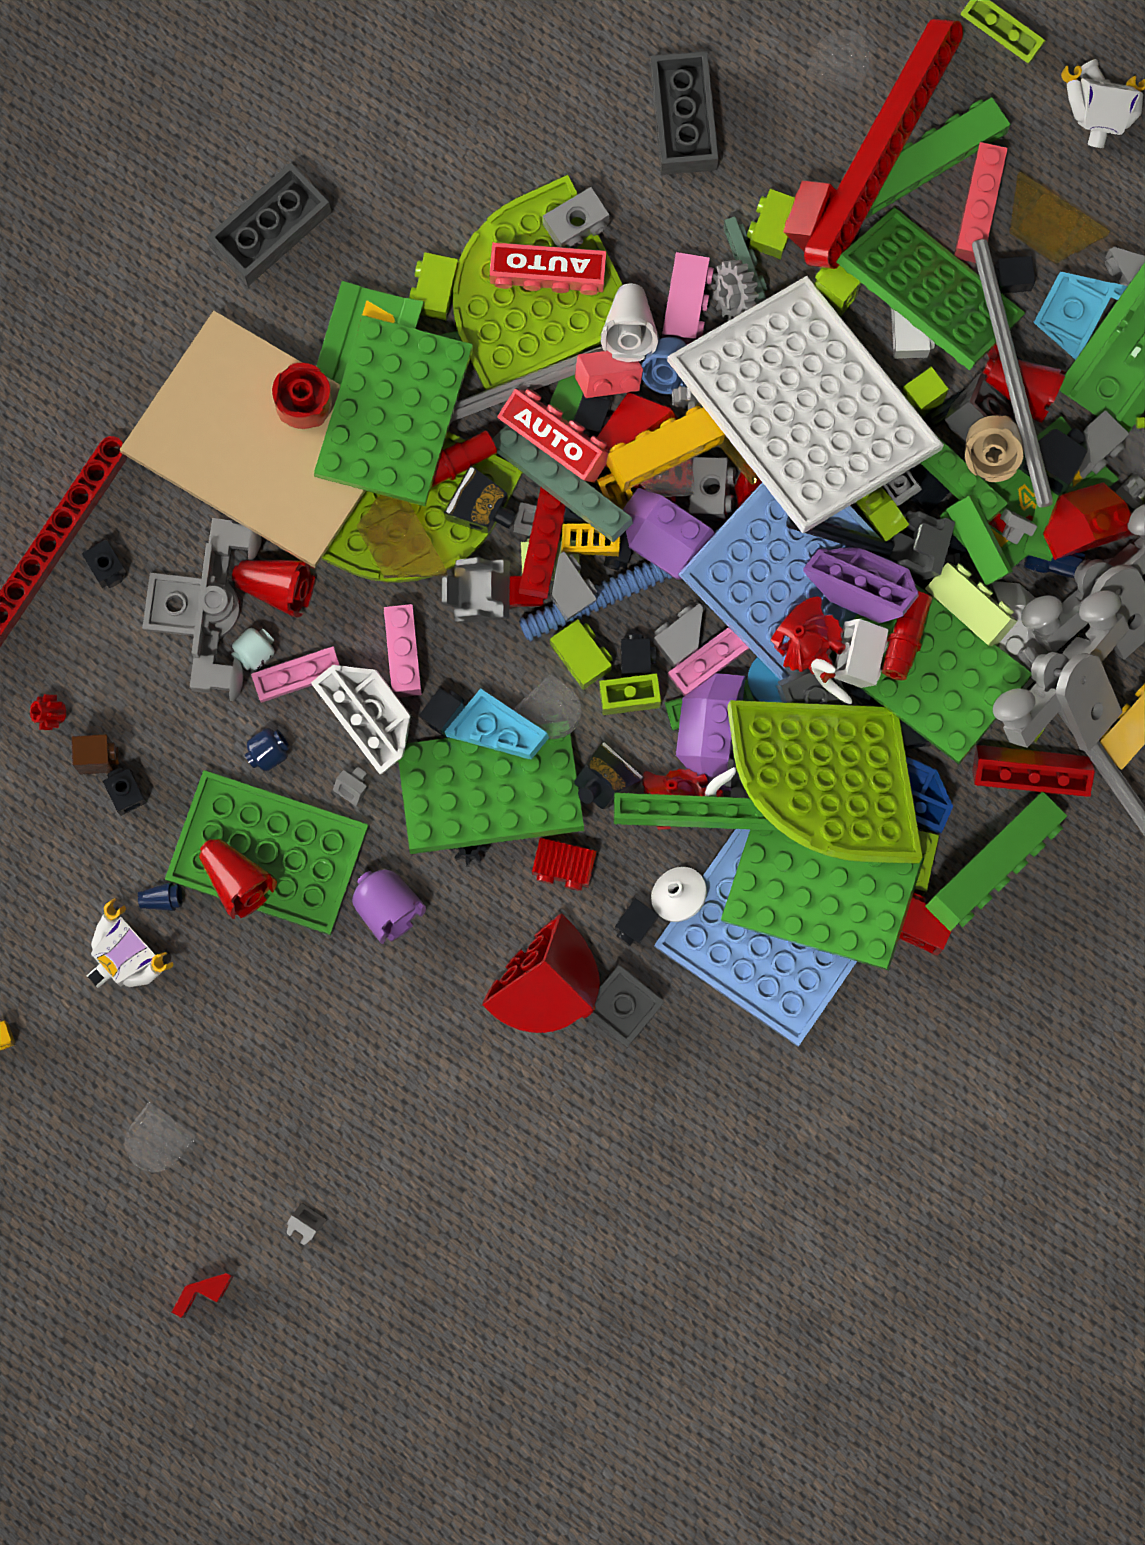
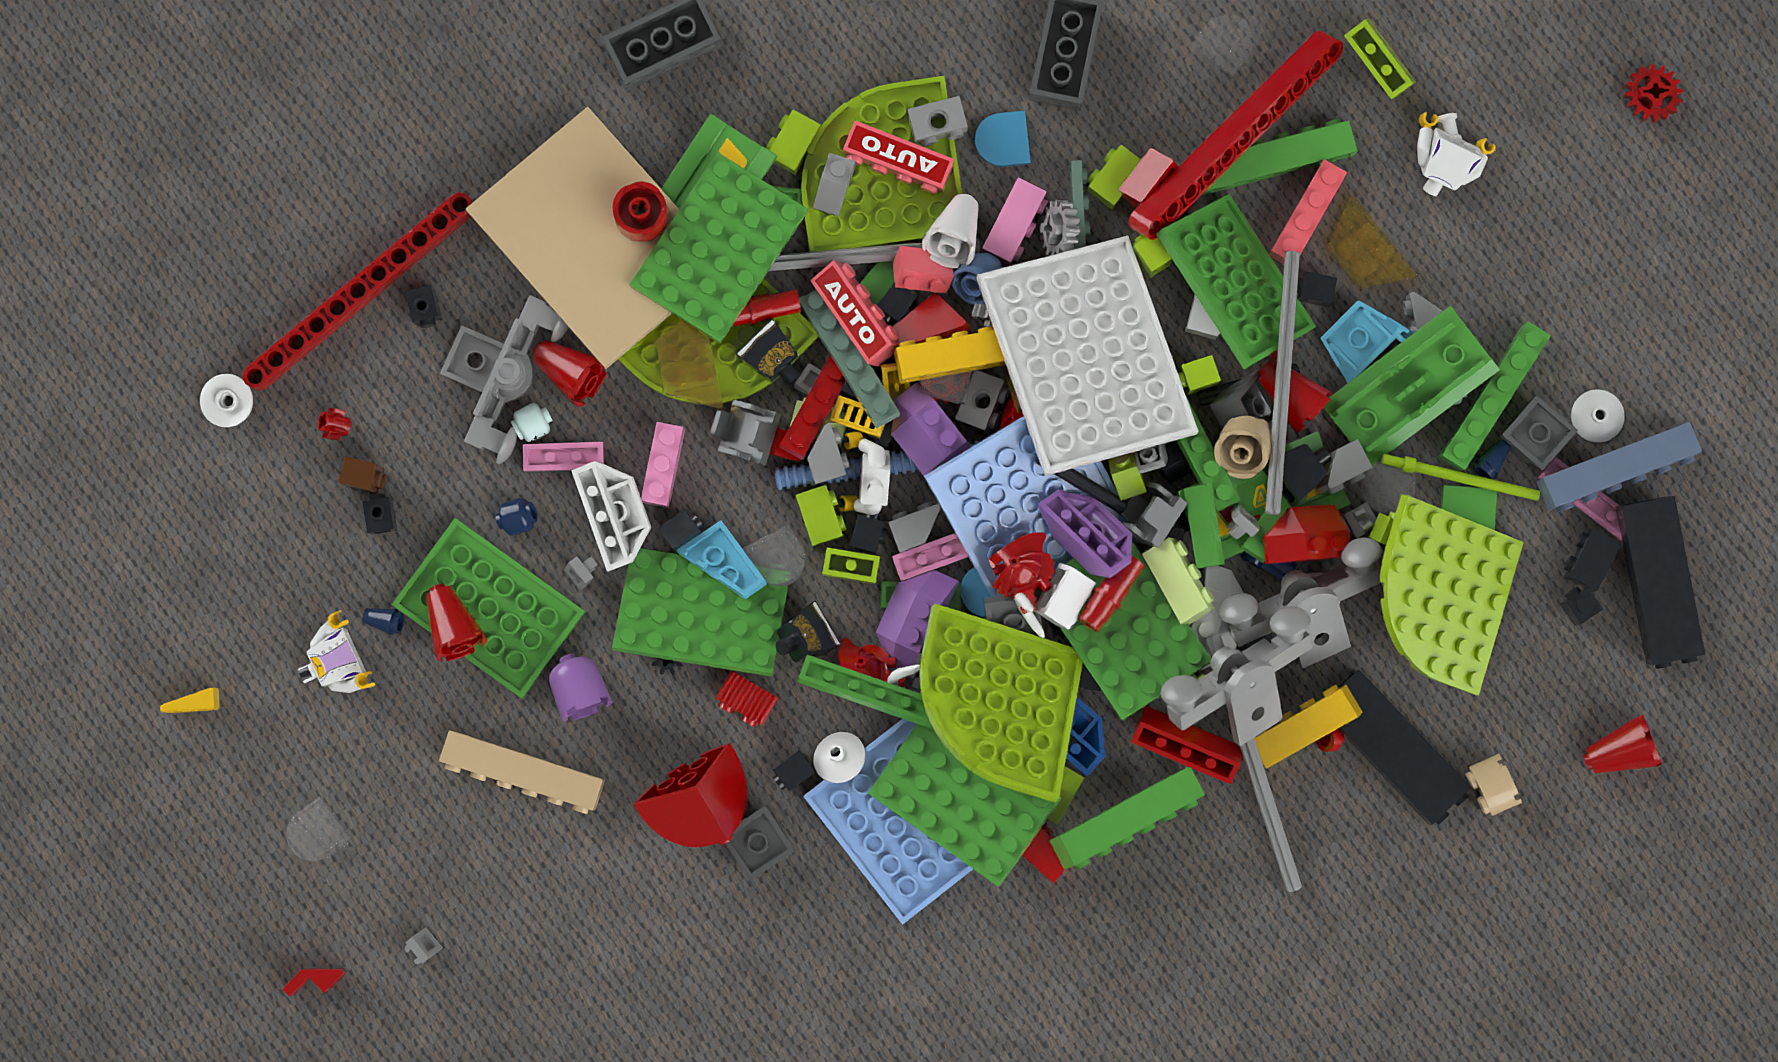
camera: 20 degrees right, 5 degrees up
(353, 1009) = (521, 770): none -> tan brick
(490, 314) = (834, 184): none -> light grey slope
(625, 596) = (873, 478): none -> white torso
(648, 221) = (1003, 139): none -> dark azure tile

